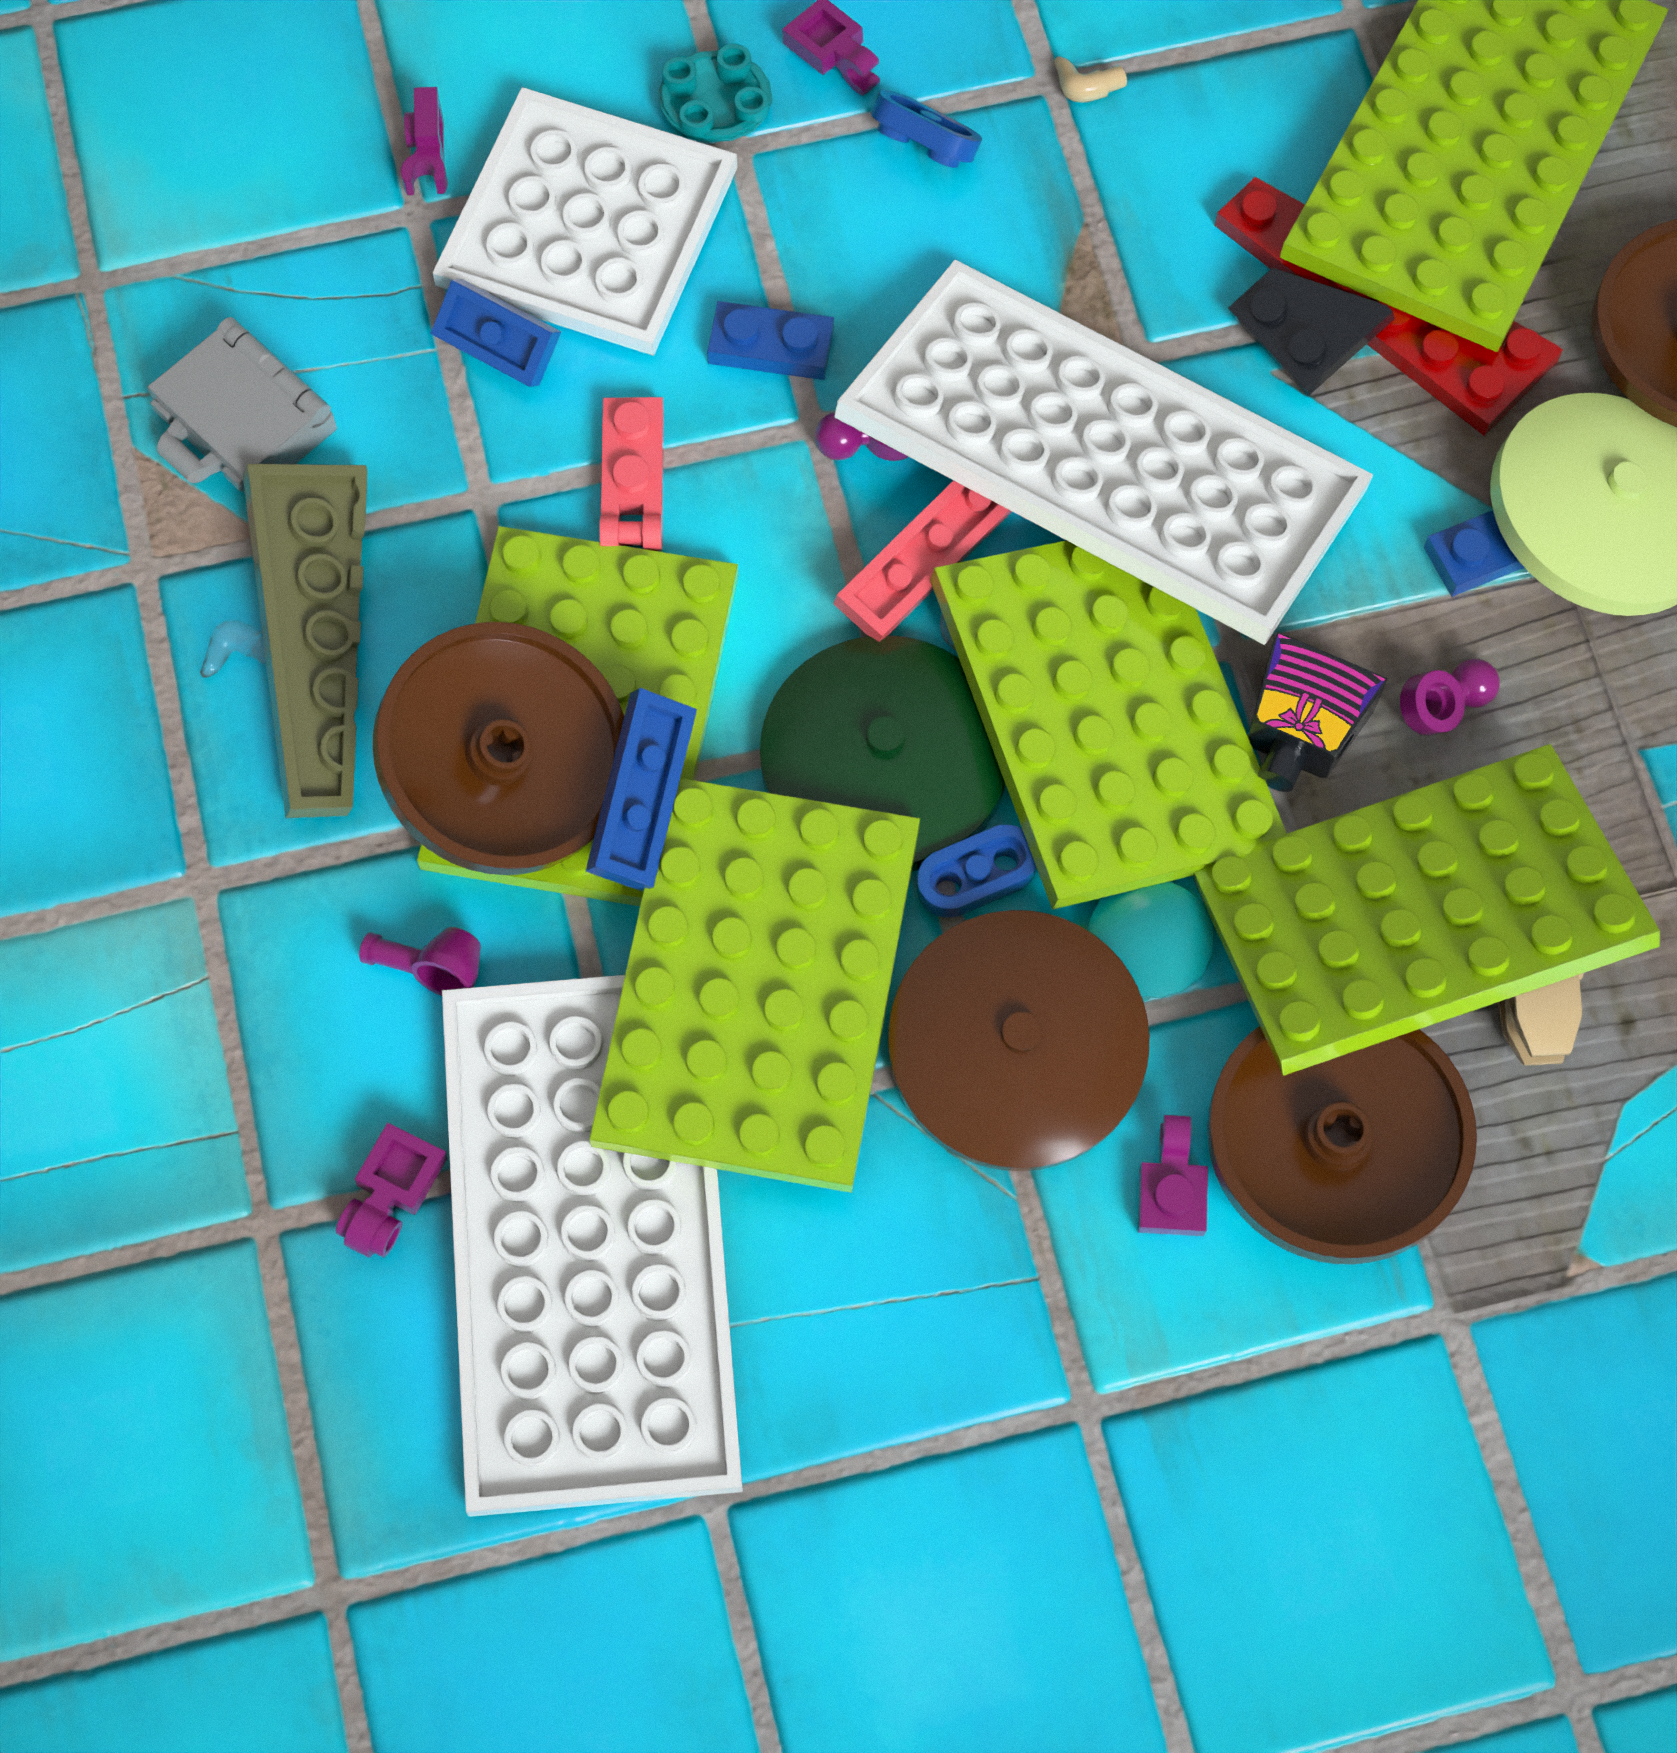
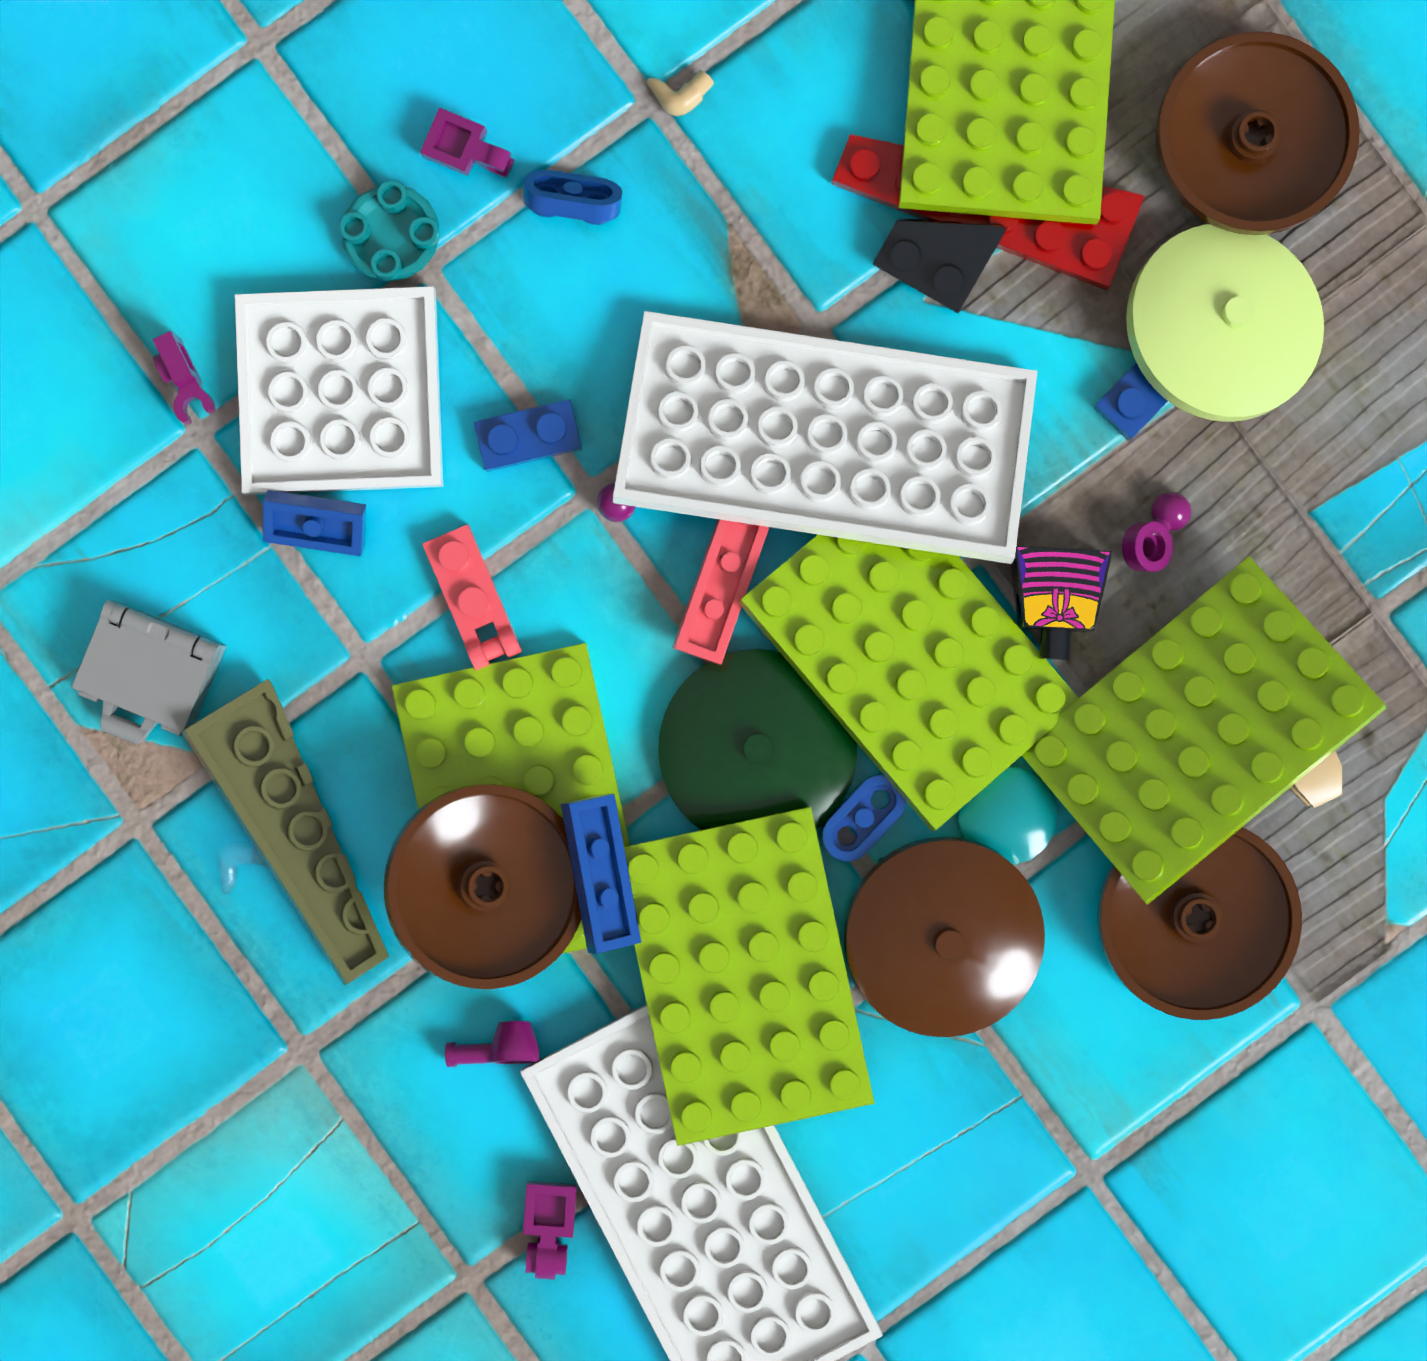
camera: 20 degrees left, 20 degrees up
(1172, 1191) = (1093, 998): magenta plate -> none

